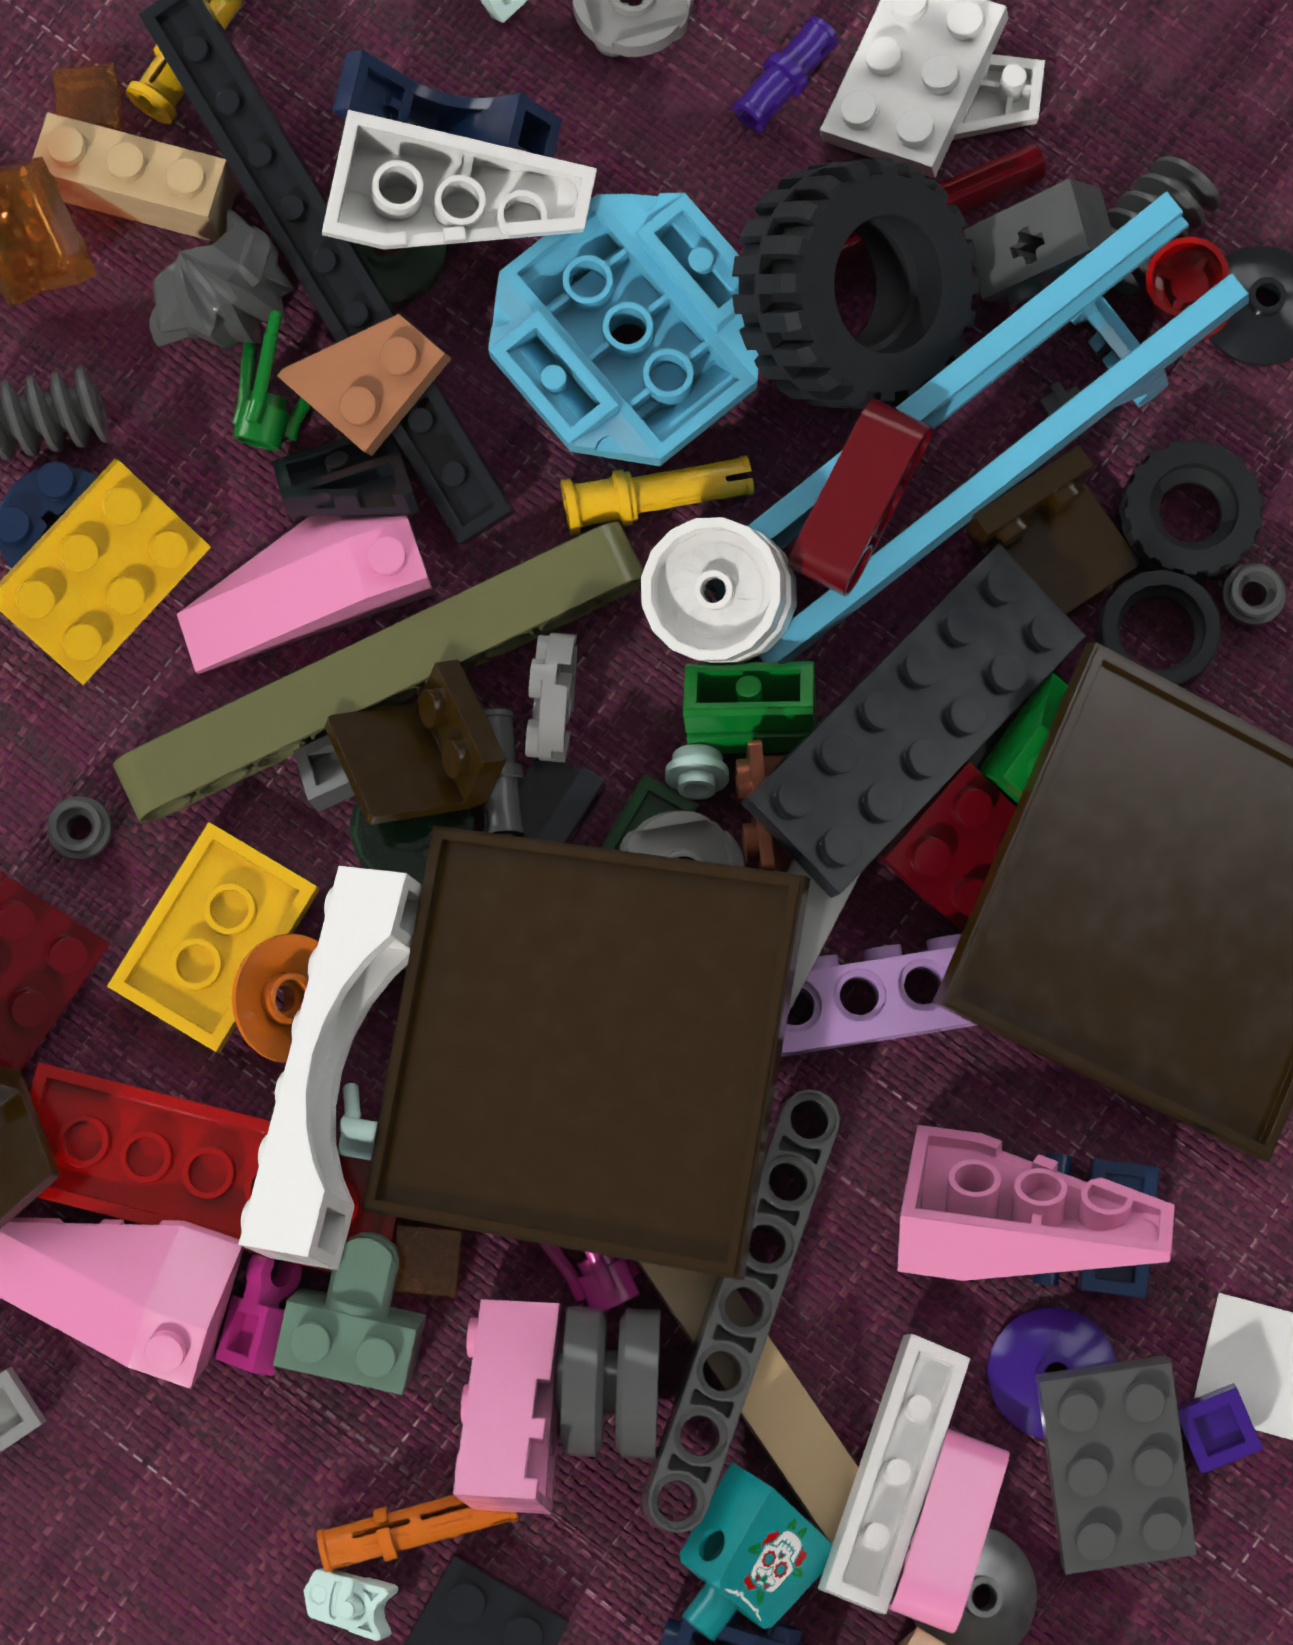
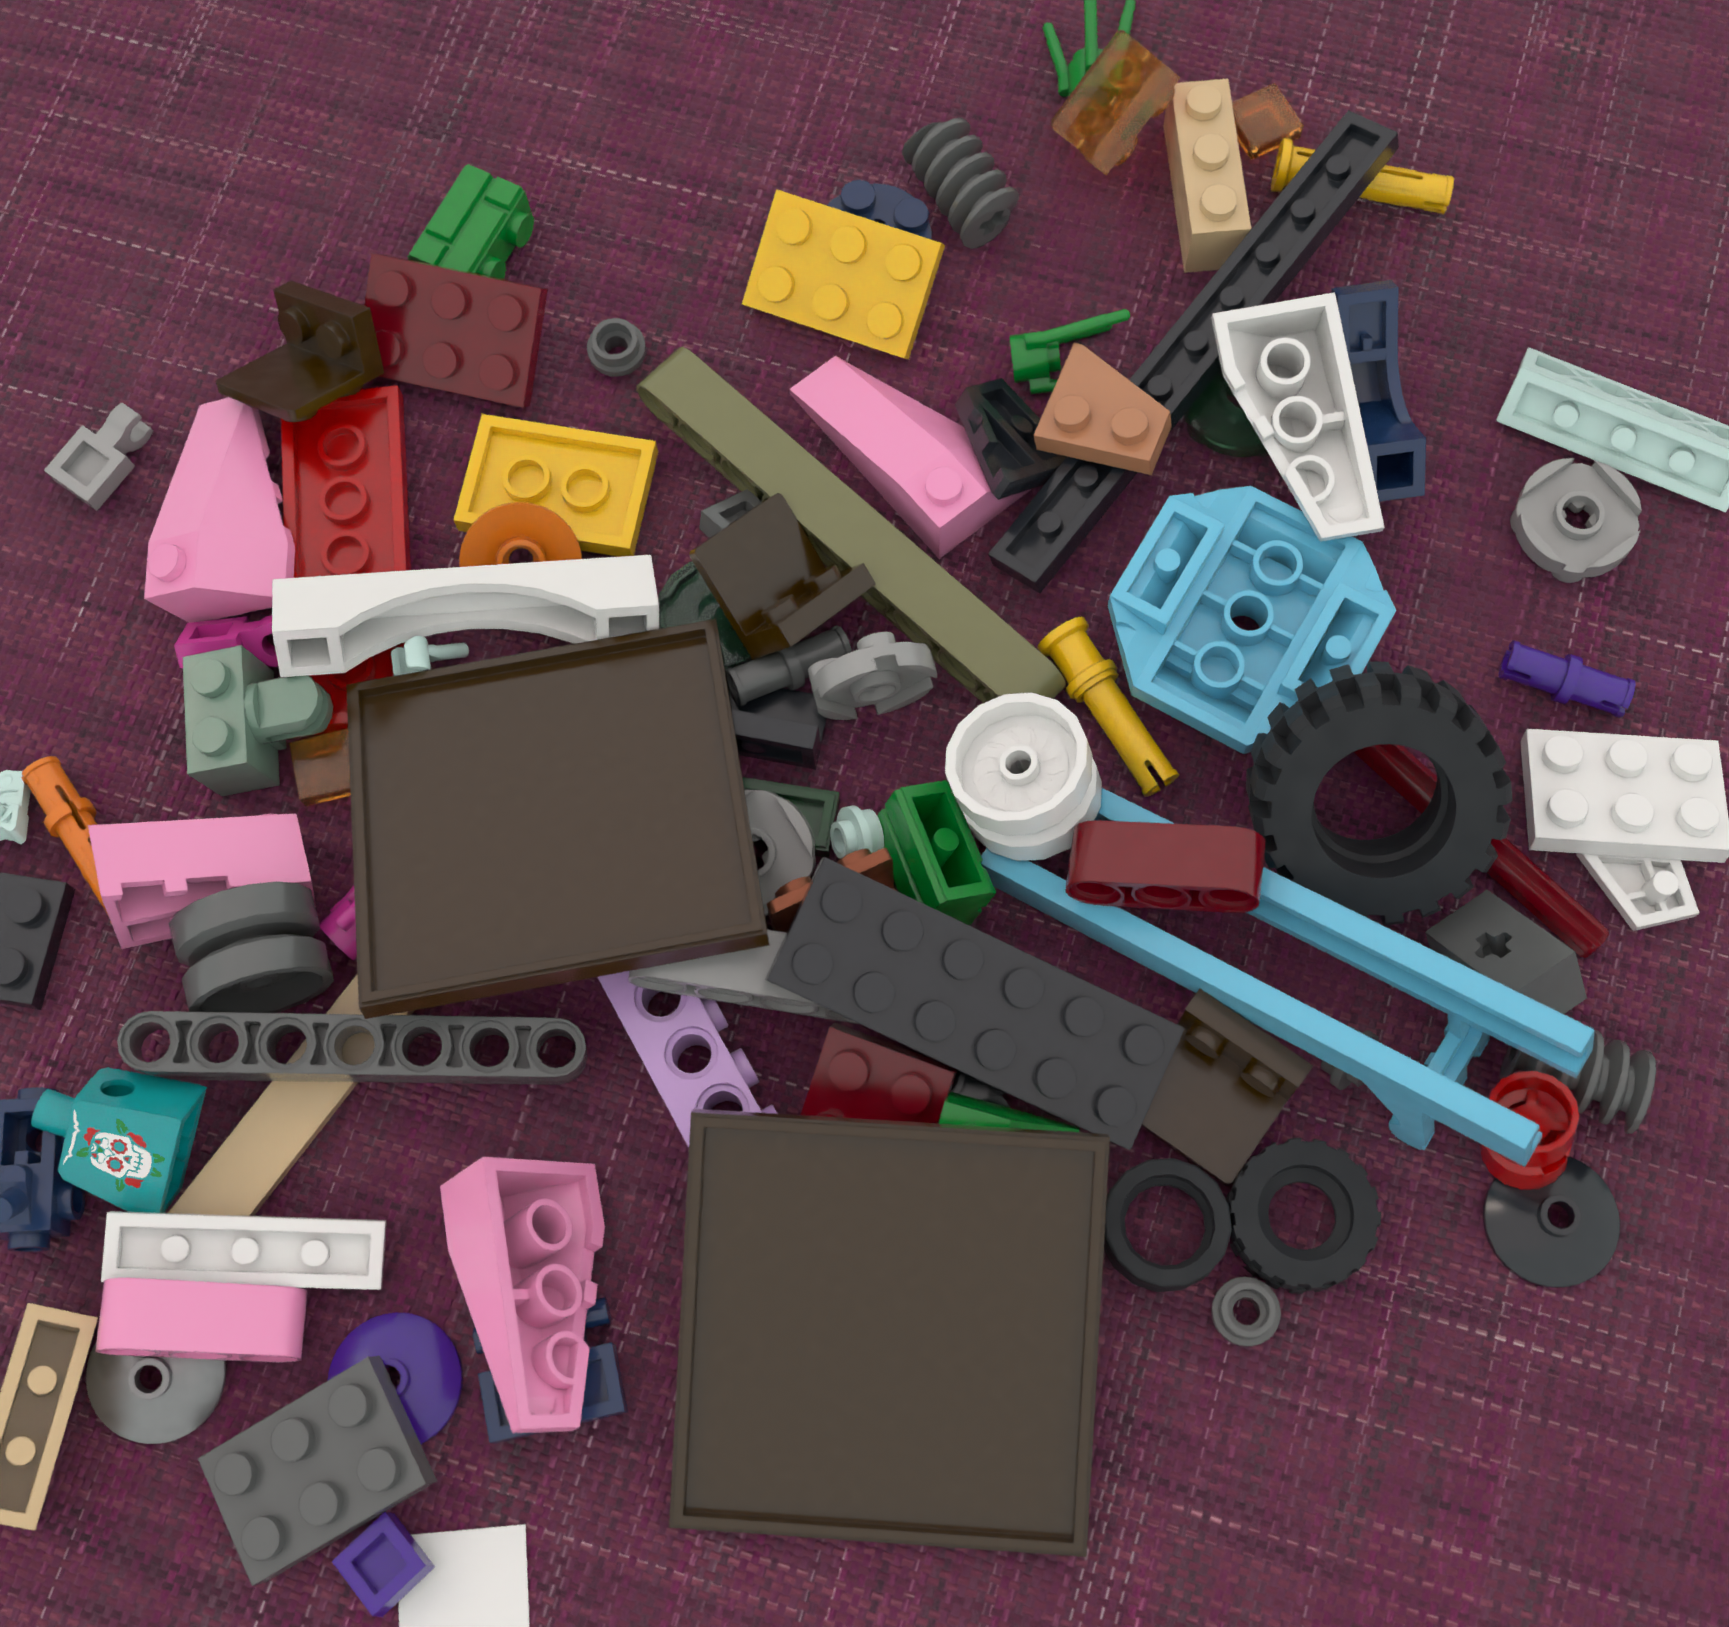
camera: 70 degrees right, 10 degrees down
(220, 289) = (1132, 268): dark grey hair -> none

